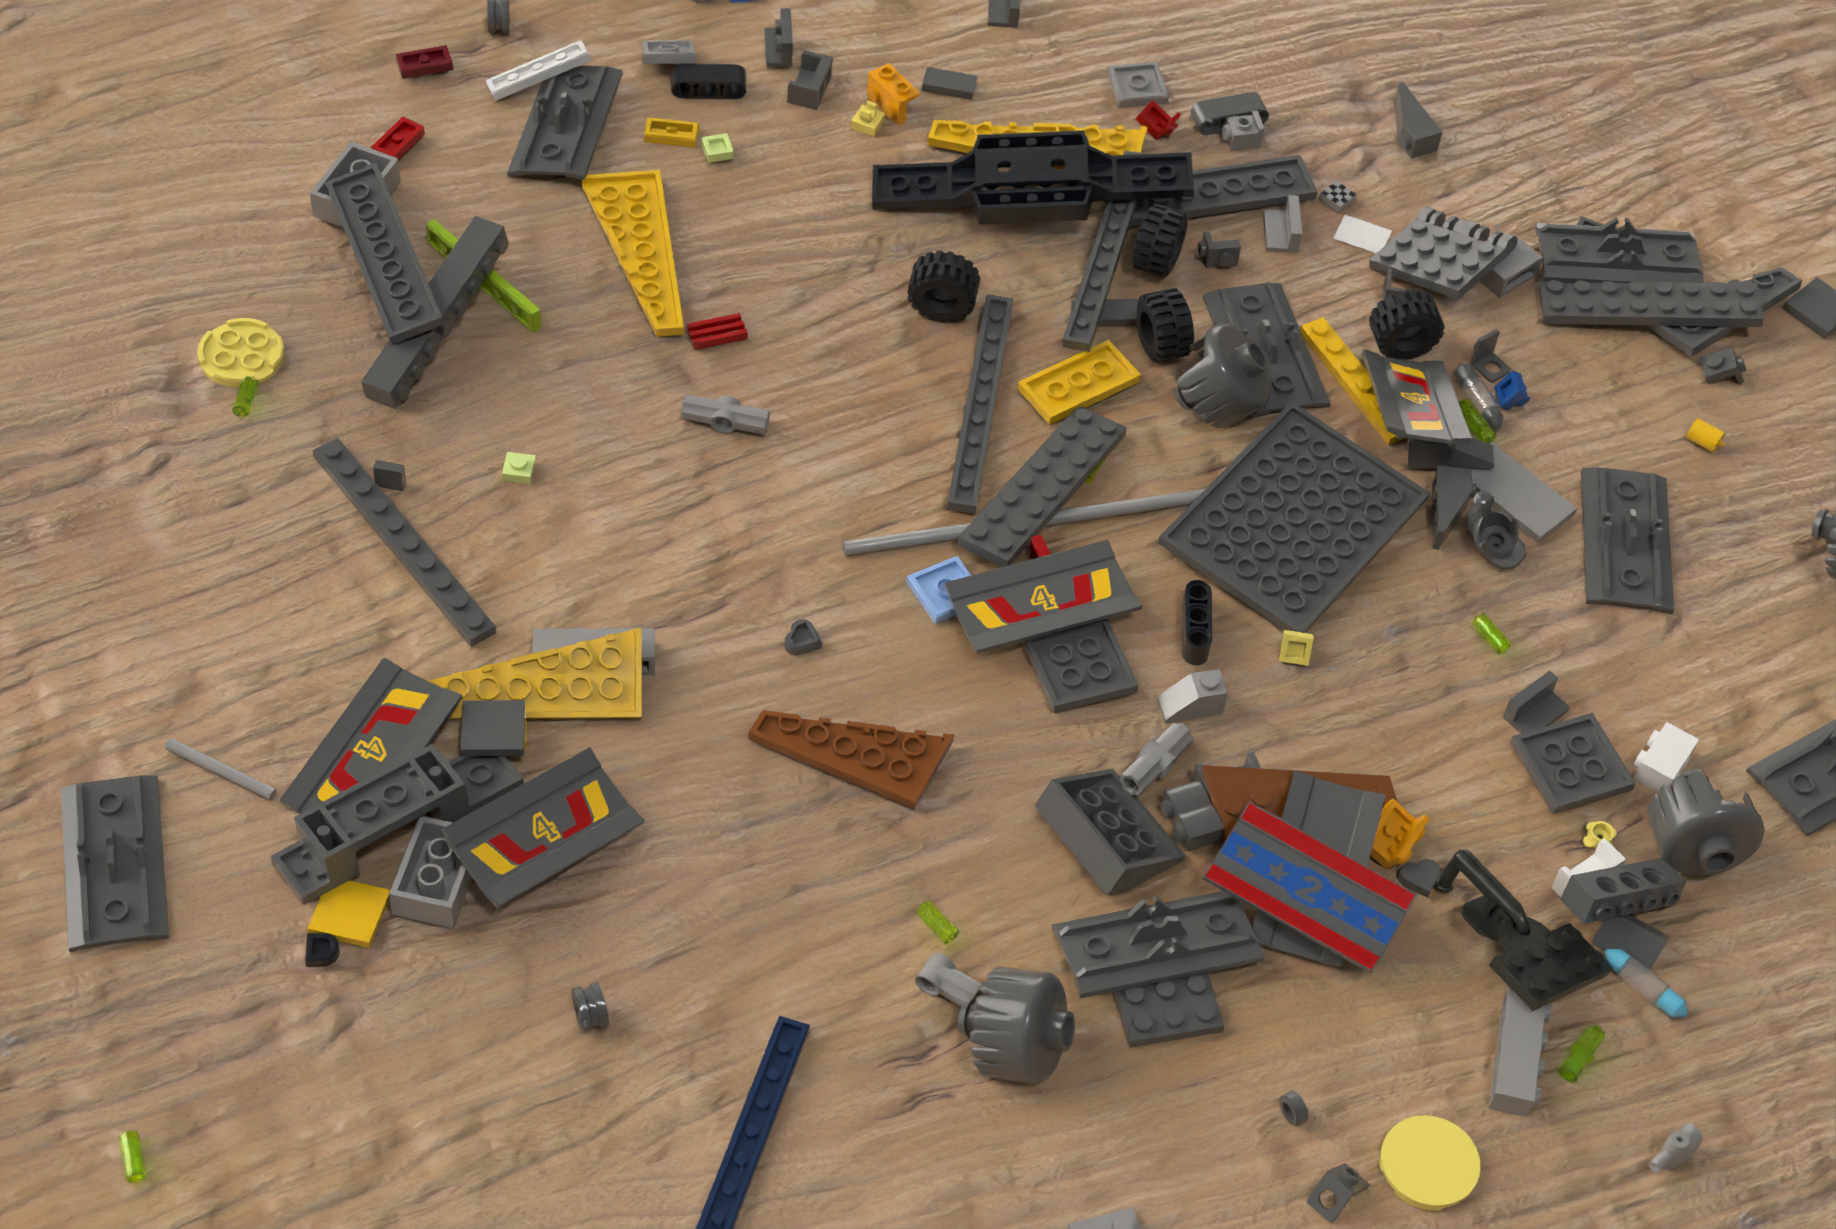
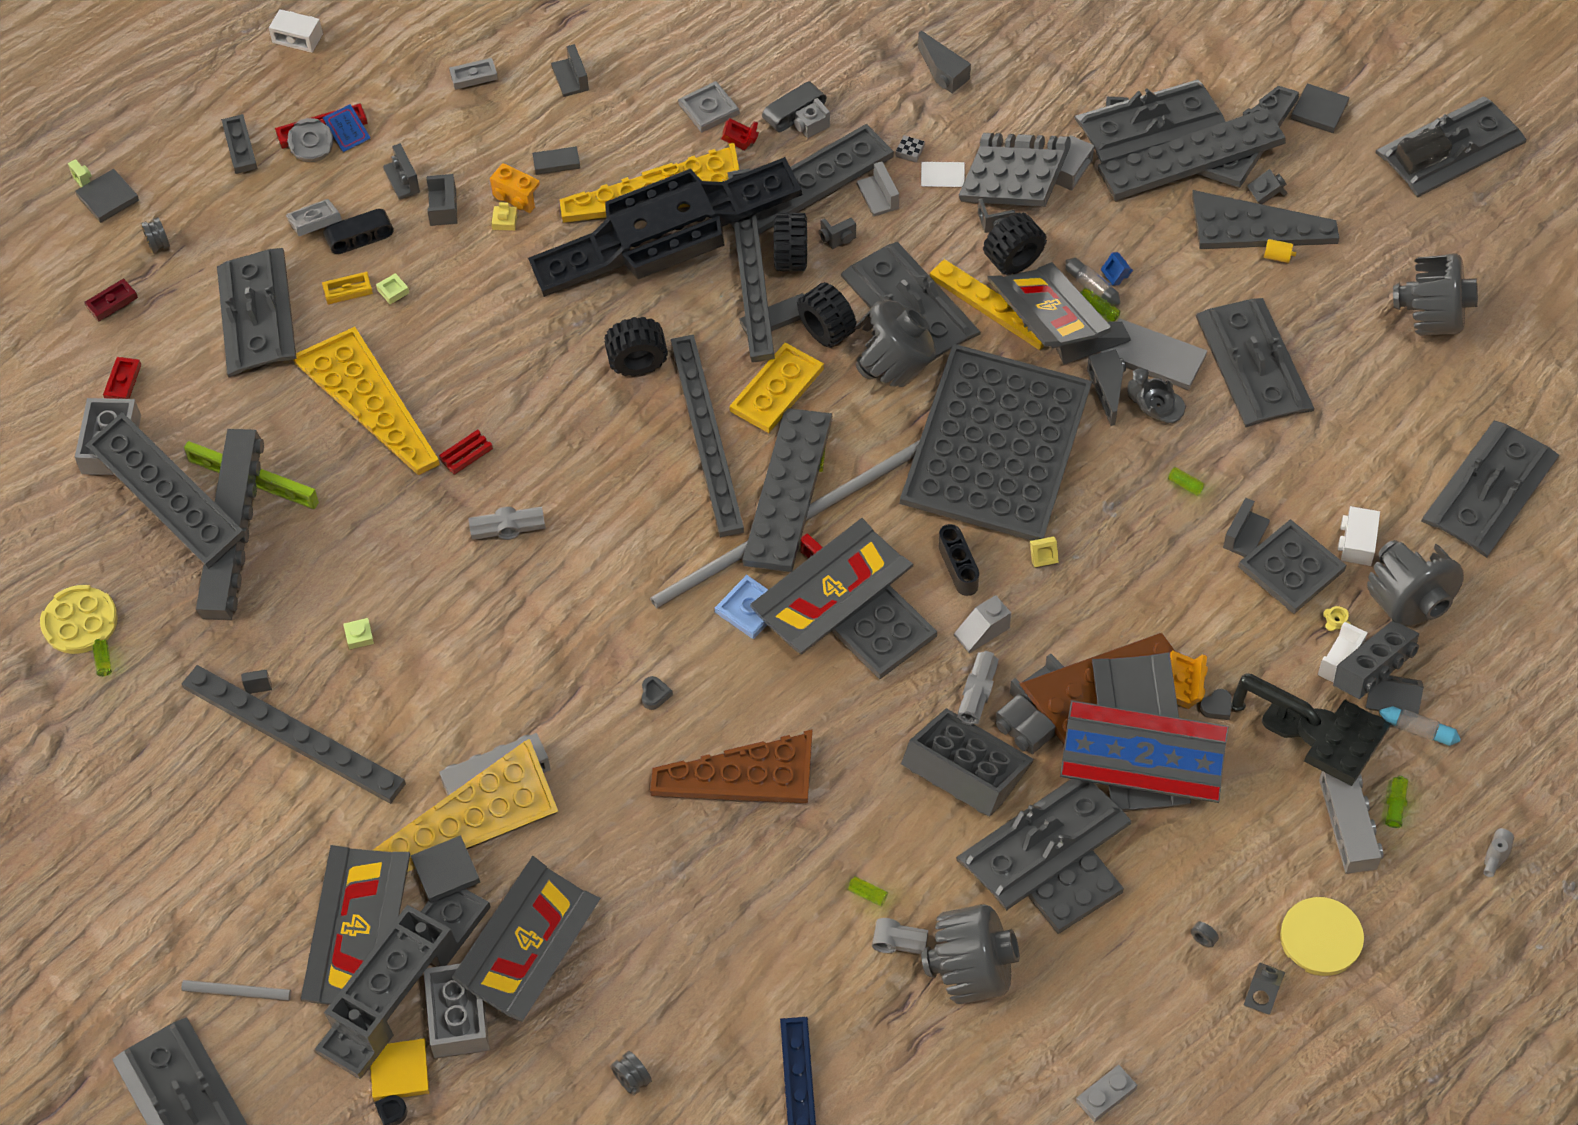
camera: 15 degrees left, 5 degrees up
(538, 70) = (212, 273): white tile -> none
(1484, 354) = (1082, 244): dark grey bracket -> none
(1675, 394) = (1244, 224): none -> dark grey wing

